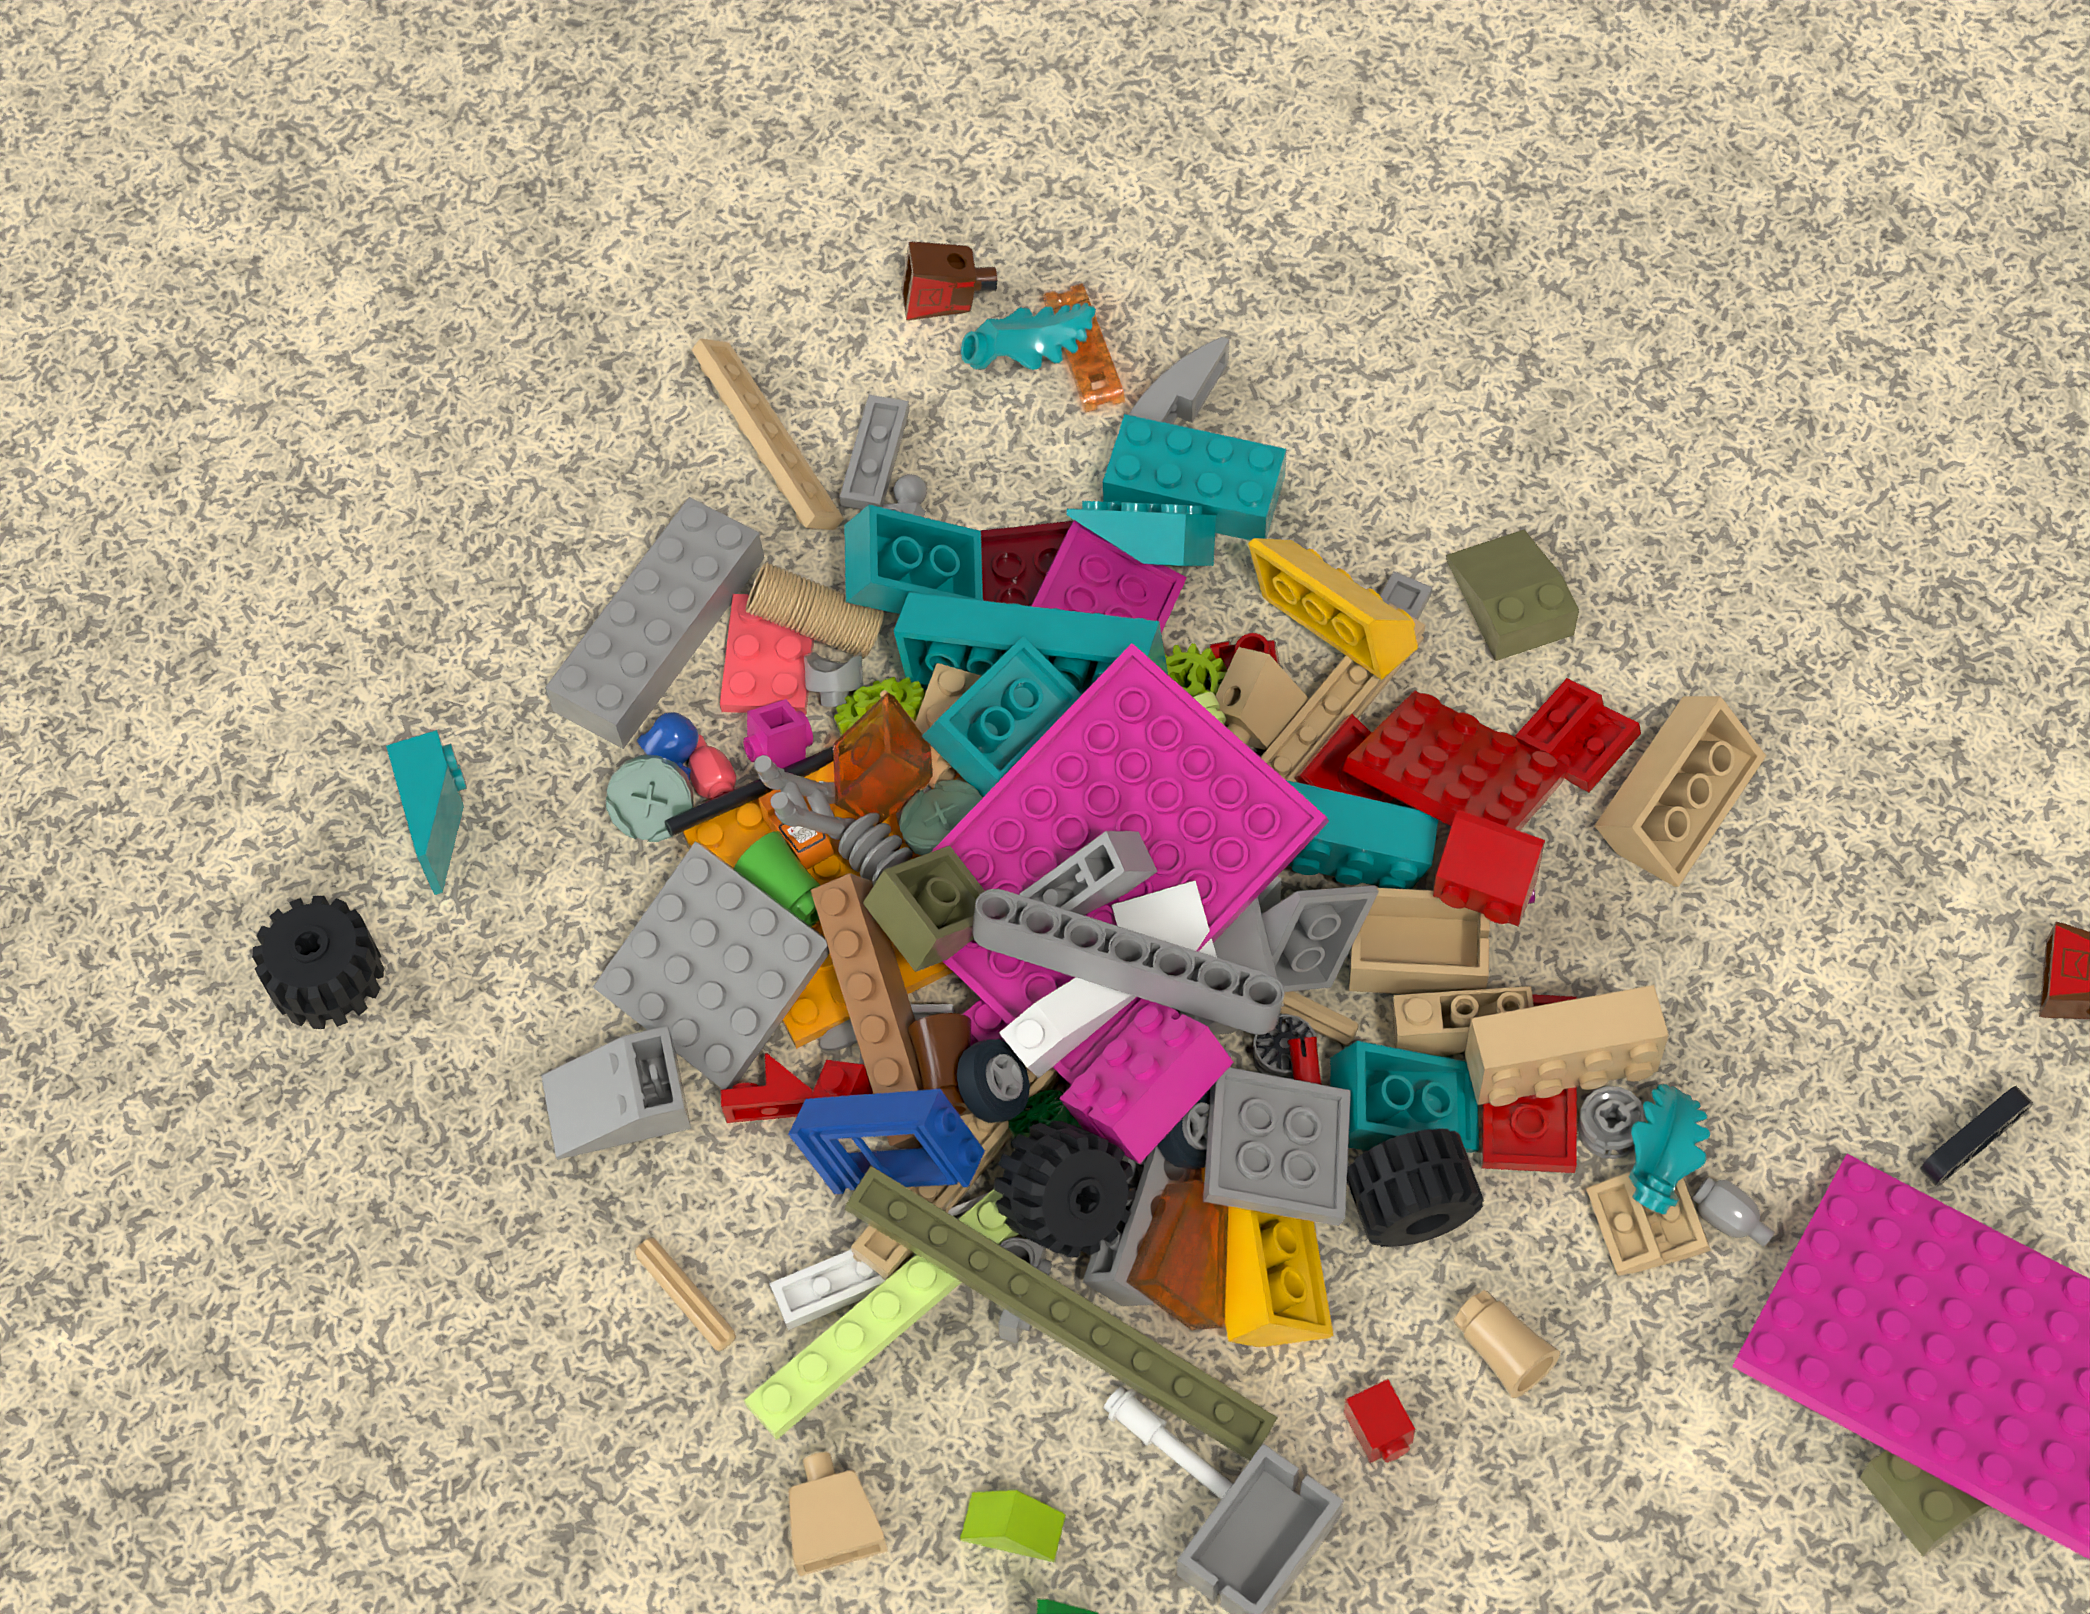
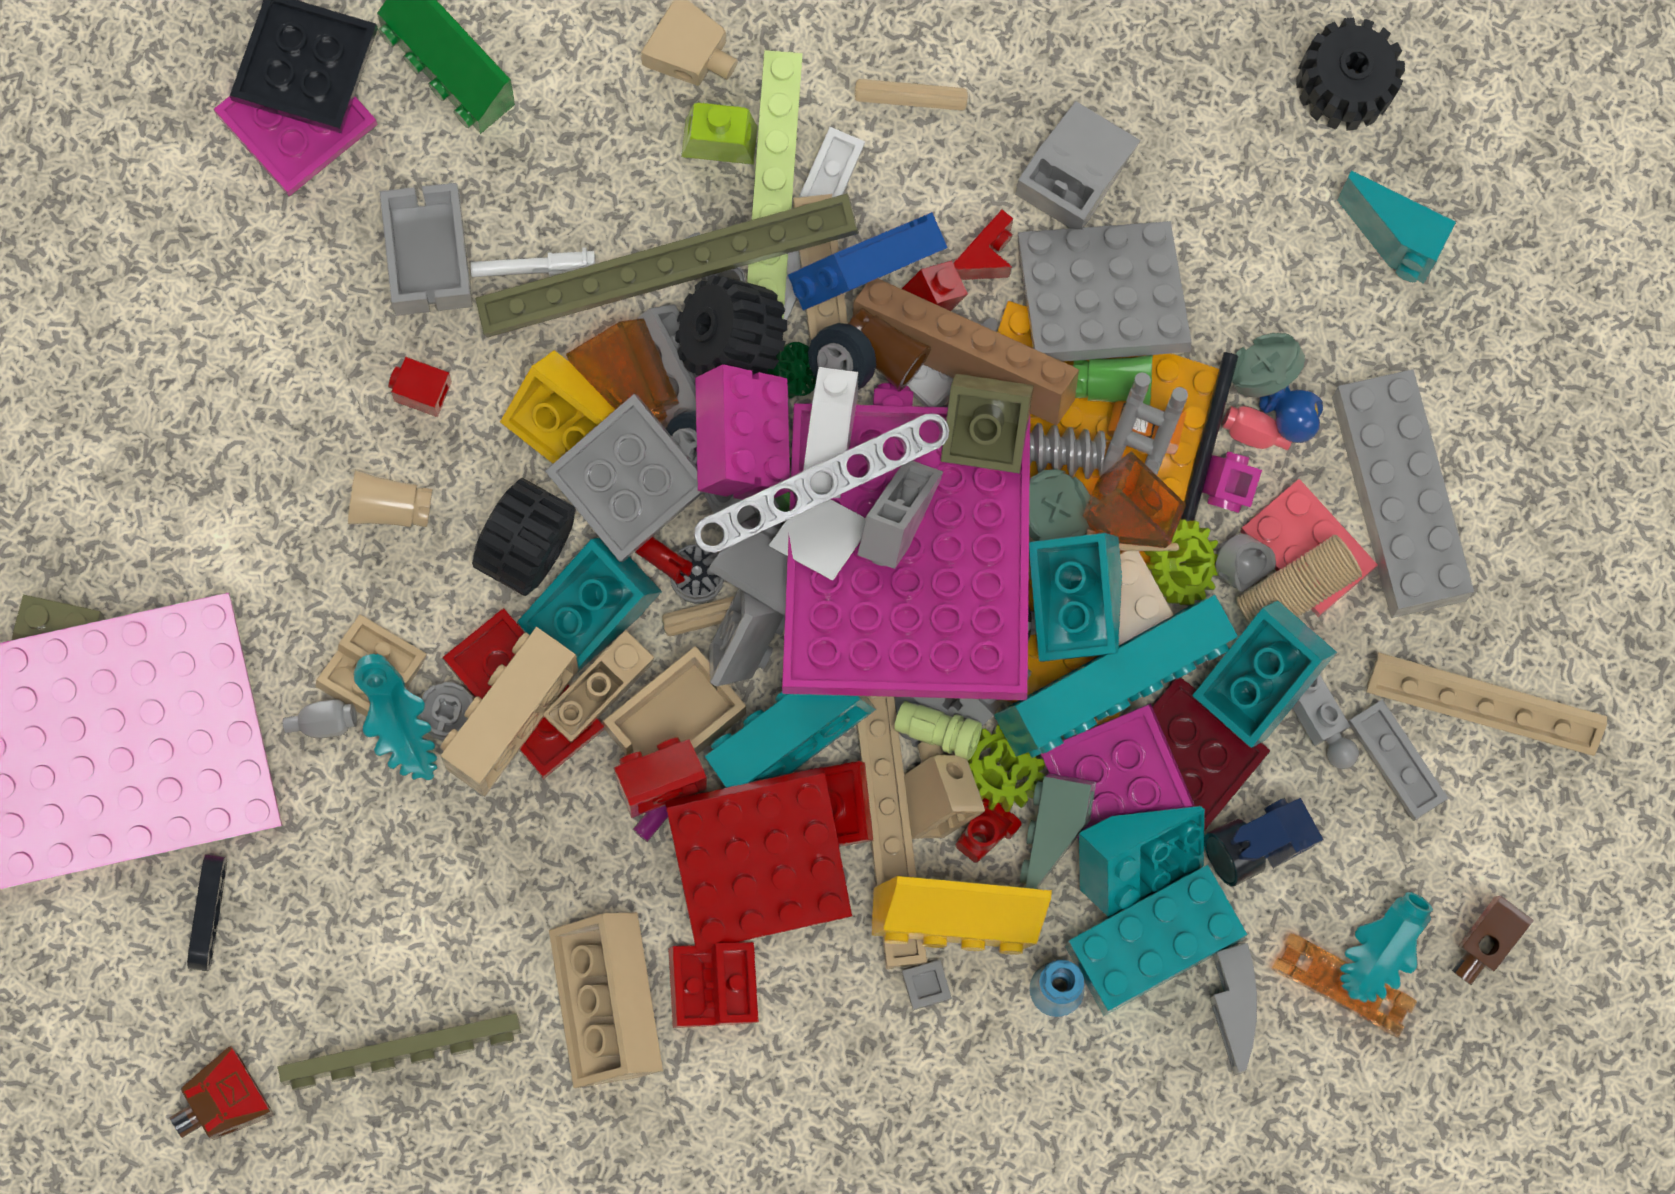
camera: 125 degrees right, 15 degrees up
(889, 1401) = (720, 134): none -> lime torso
(1013, 1524) = (581, 137): lime slope -> none
(1041, 468) = (1241, 848): none -> dark blue piece
(1192, 601) = (1062, 814): none -> sand green slope
(1303, 504) = (1050, 1000): none -> dark azure plant
(1514, 594) = (858, 1057): olive slope -> none
(1896, 891) = (417, 1048): none -> olive plate

